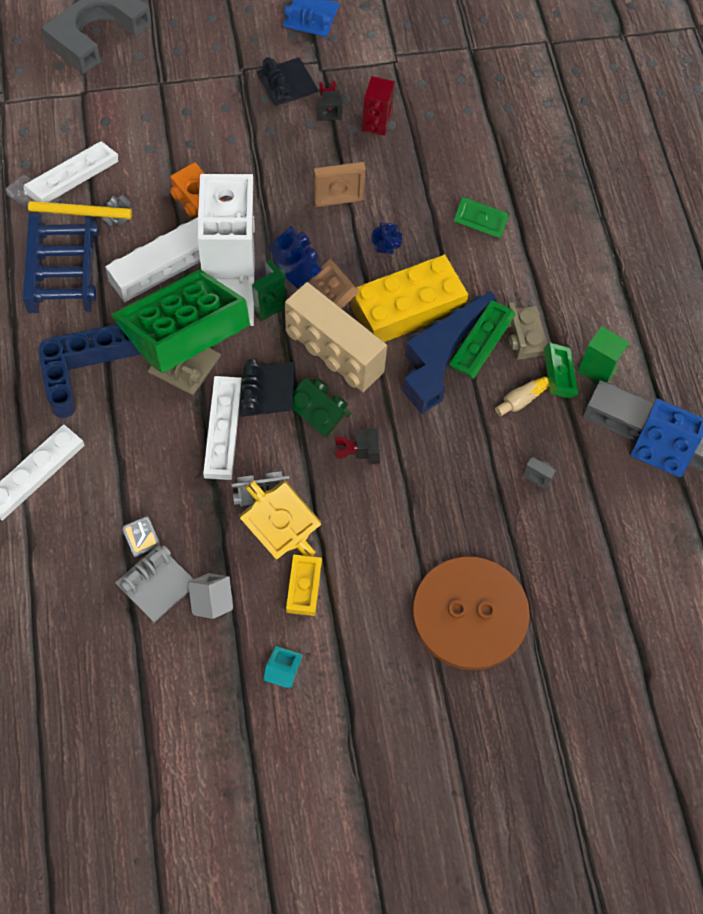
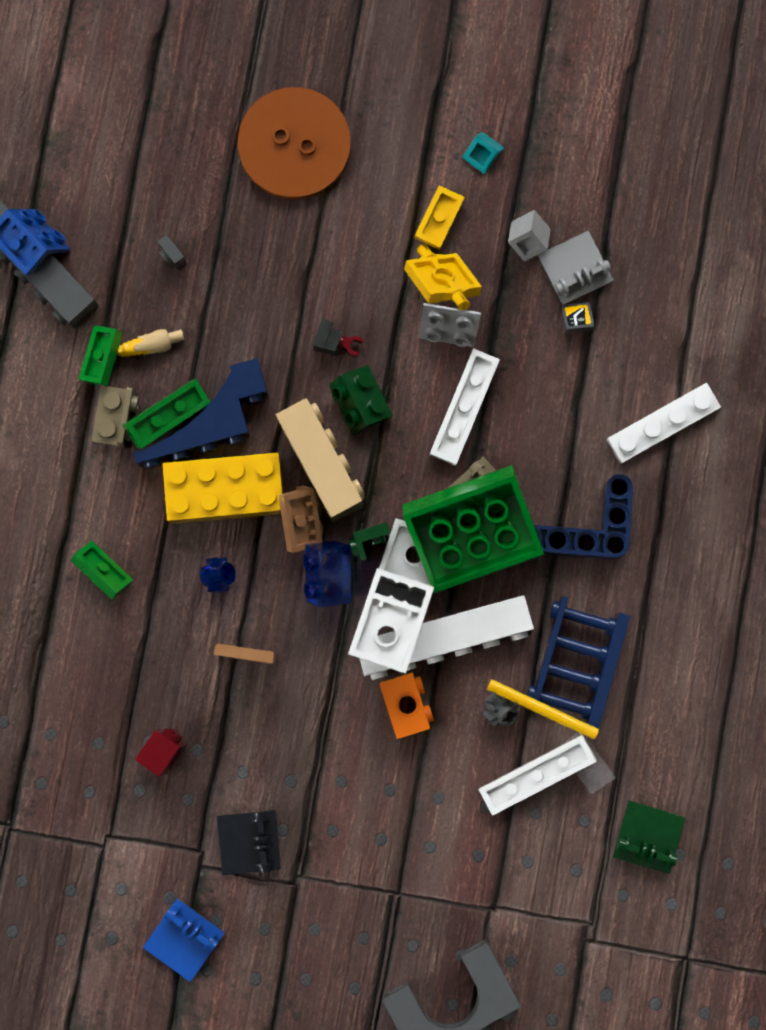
camera: 155 degrees left, 20 degrees up
(267, 388) = (406, 433): black hinge -> none
(330, 104) = (210, 786): pearl dark grey piece -> none
(602, 356) = (53, 346): green panel -> none

